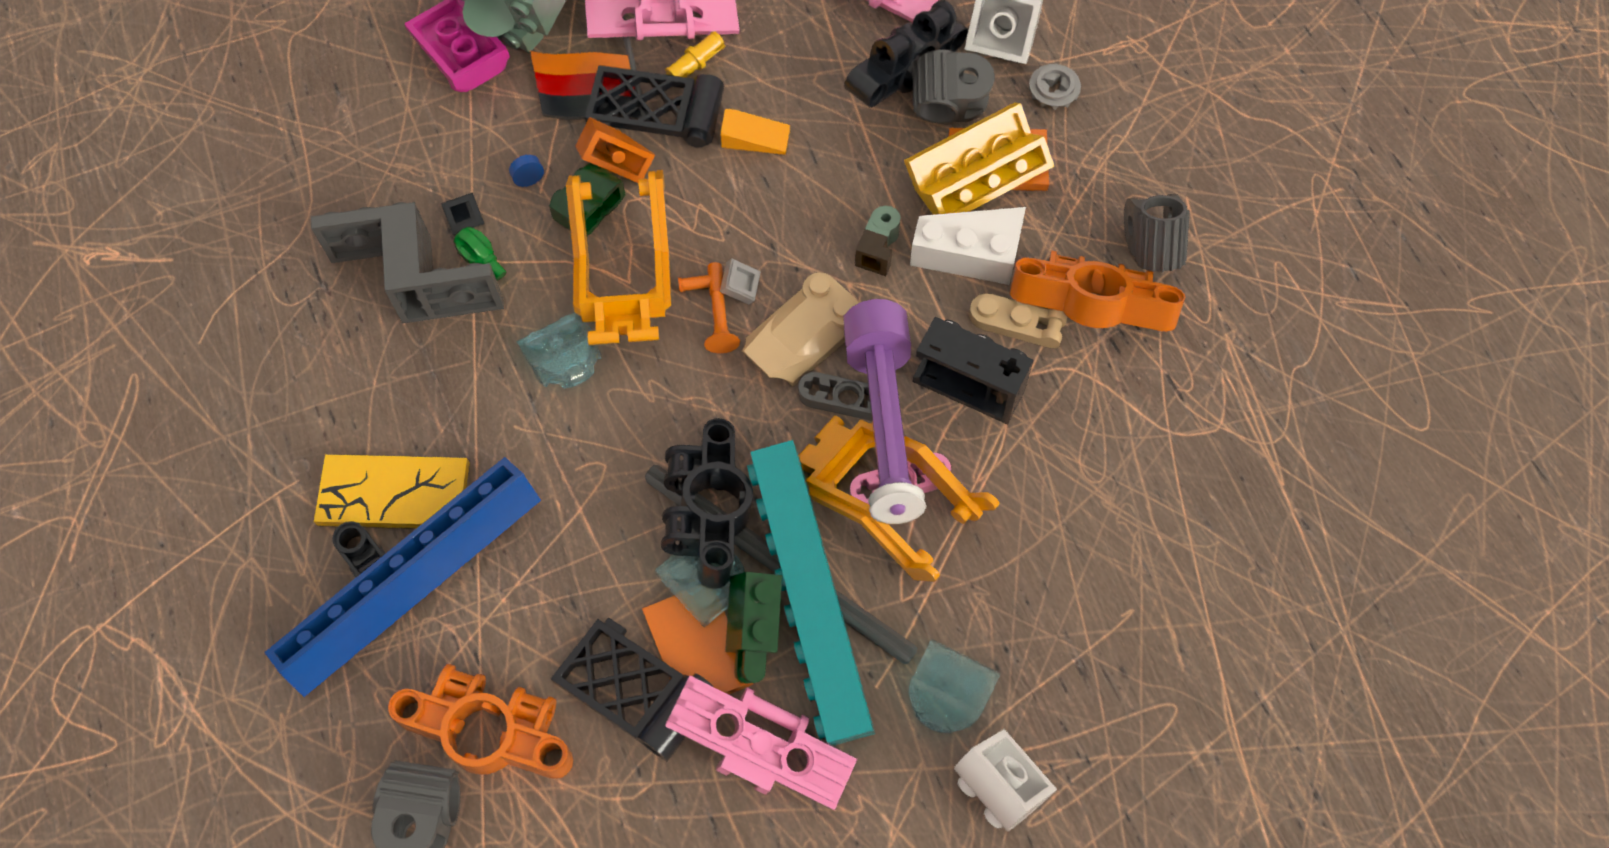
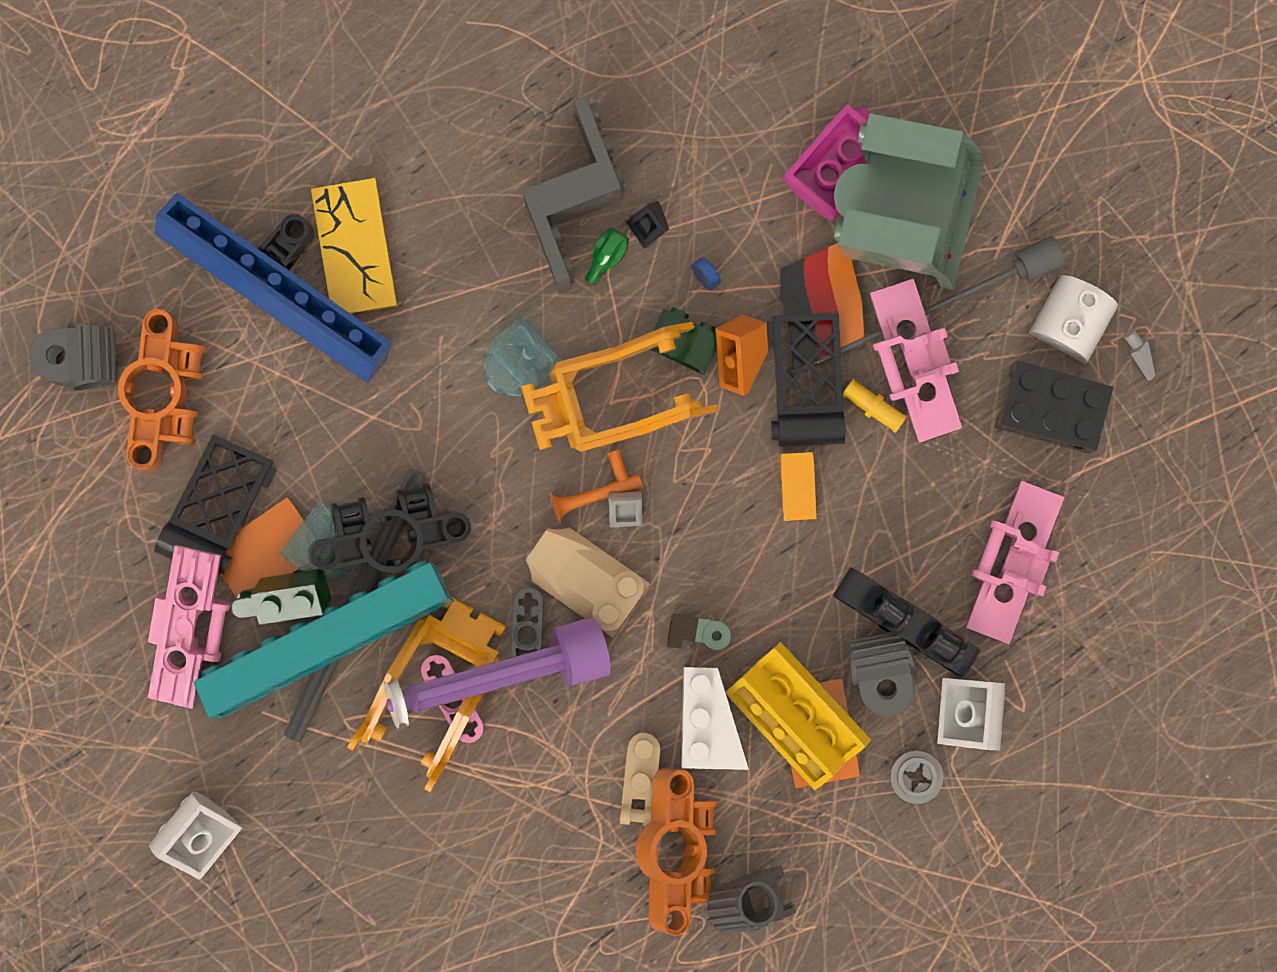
camera: 70 degrees right, 20 degrees up
(950, 689) = (267, 776): clear light blue slope -> none
(972, 366) = (571, 746): black piece -> none

